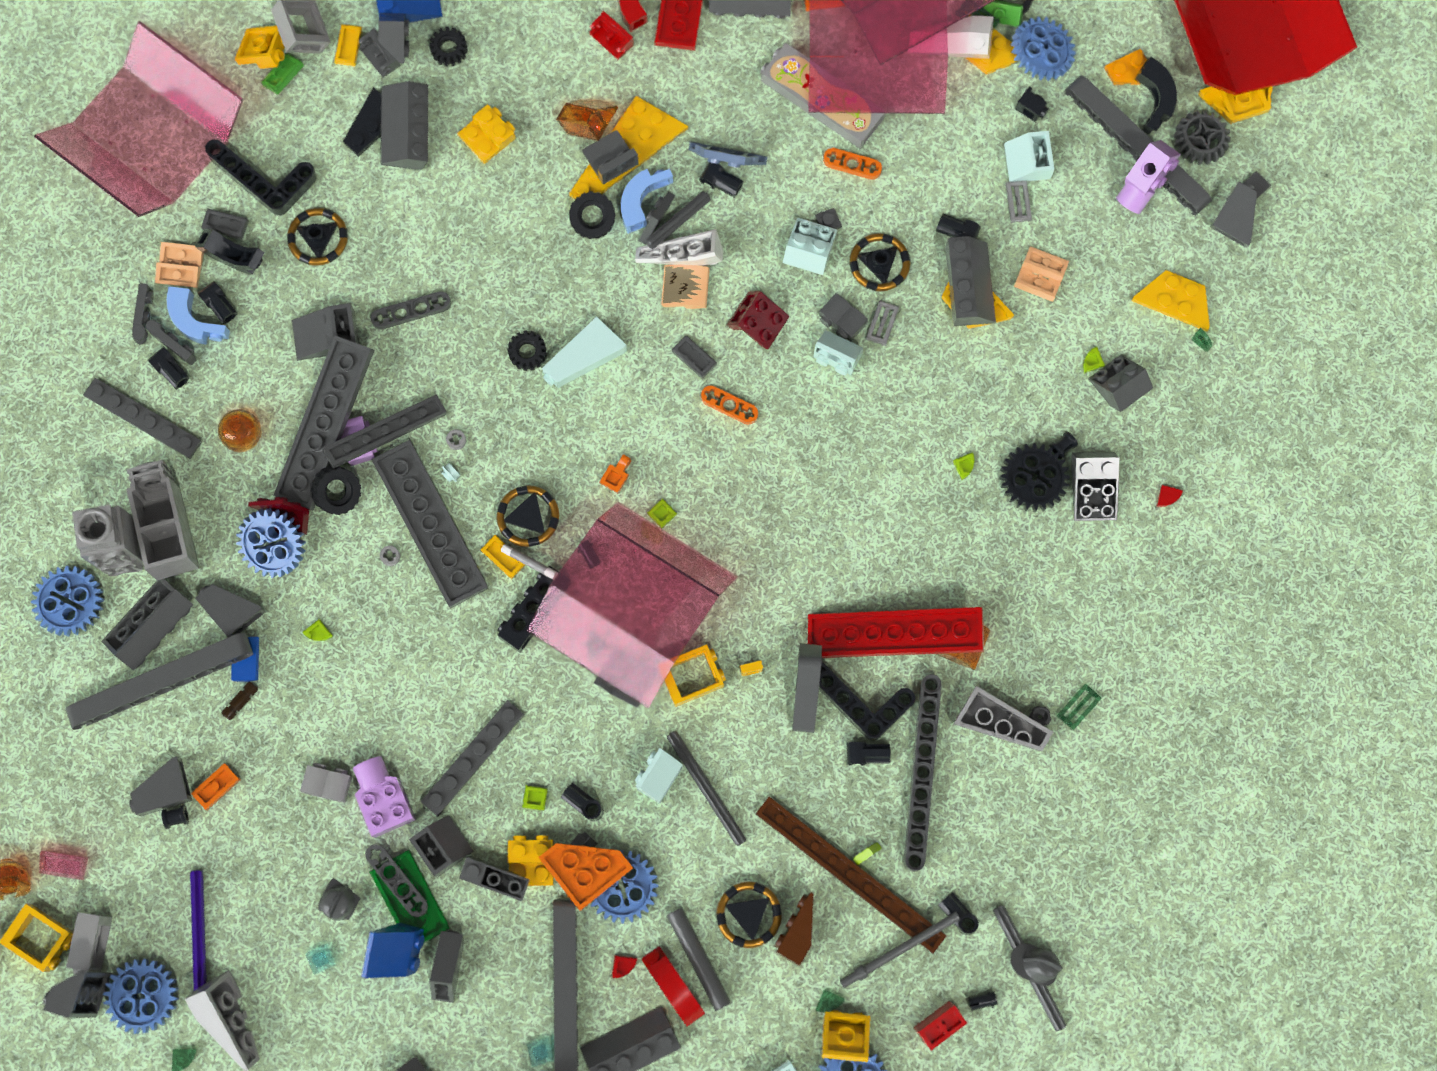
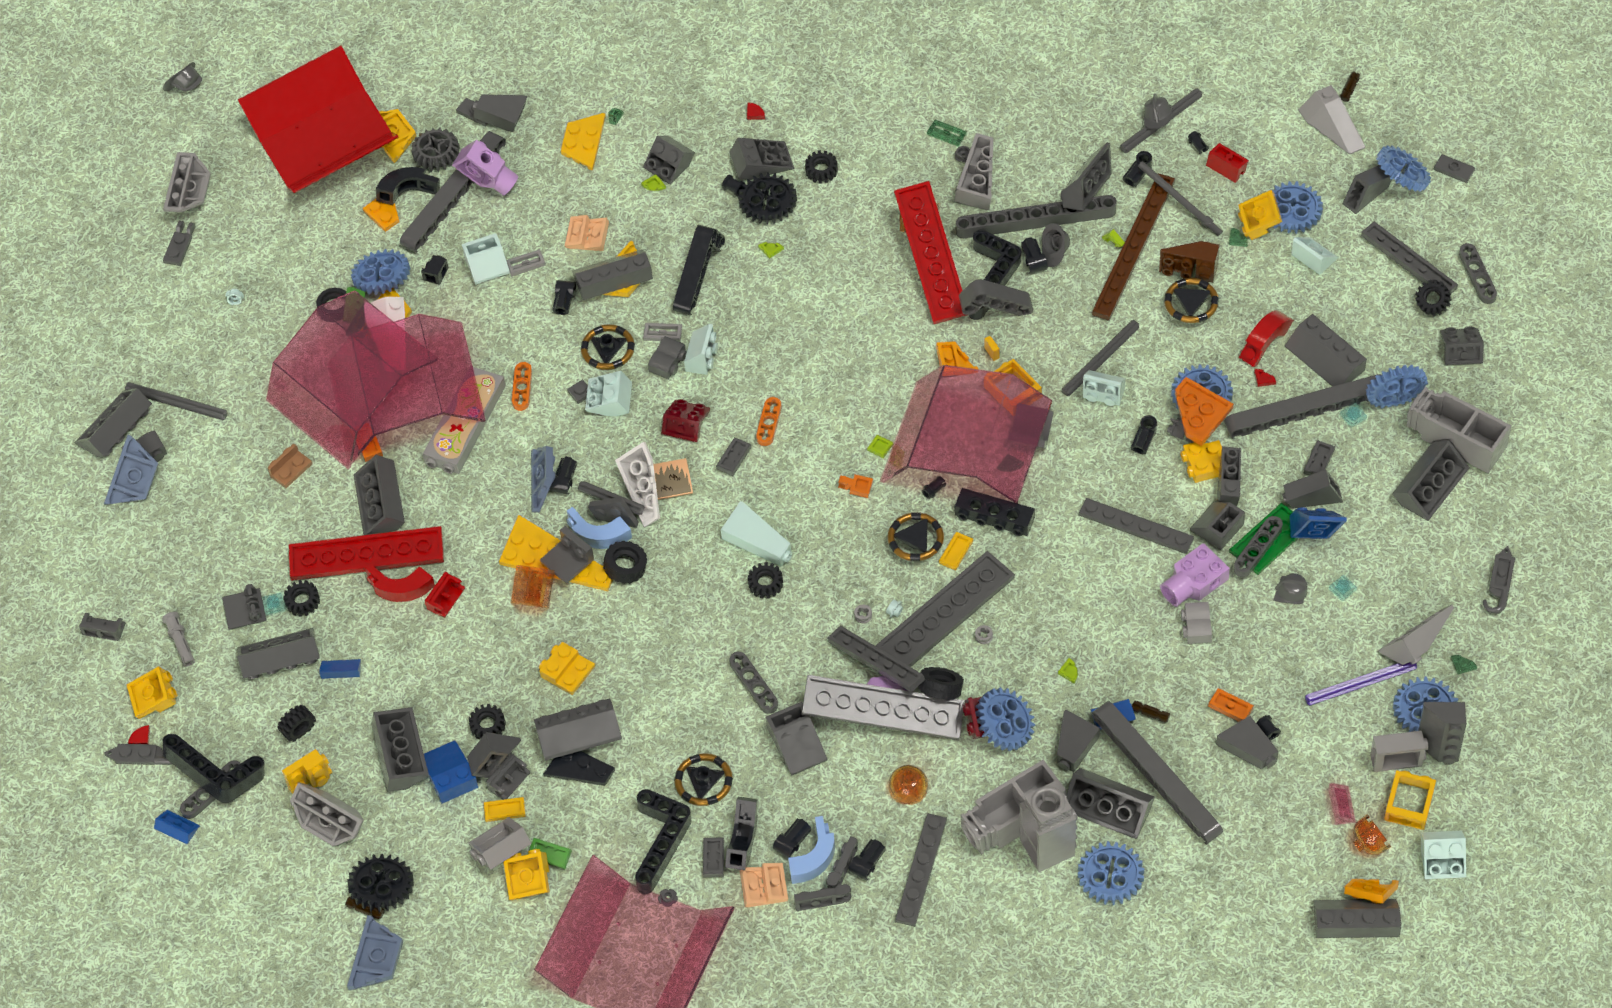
camera: 100 degrees left, 20 degrees down
(205, 174) = (671, 893): none -> dark grey plate
(491, 990) = (1319, 458): none -> dark grey plate
(529, 561) = (956, 521): light grey bar -> none
(535, 798) = (1152, 473): lime tile -> none
(698, 959) = (1238, 328): dark grey piece -> none
(749, 623) = (951, 354): none -> light orange wing
(874, 781) = (1054, 238): none -> dark grey piece
(948, 843) = (1088, 179): none -> dark grey slope
(955, 373) = (695, 267): none -> black beam
(1073, 540) = (821, 158): none -> black tyre

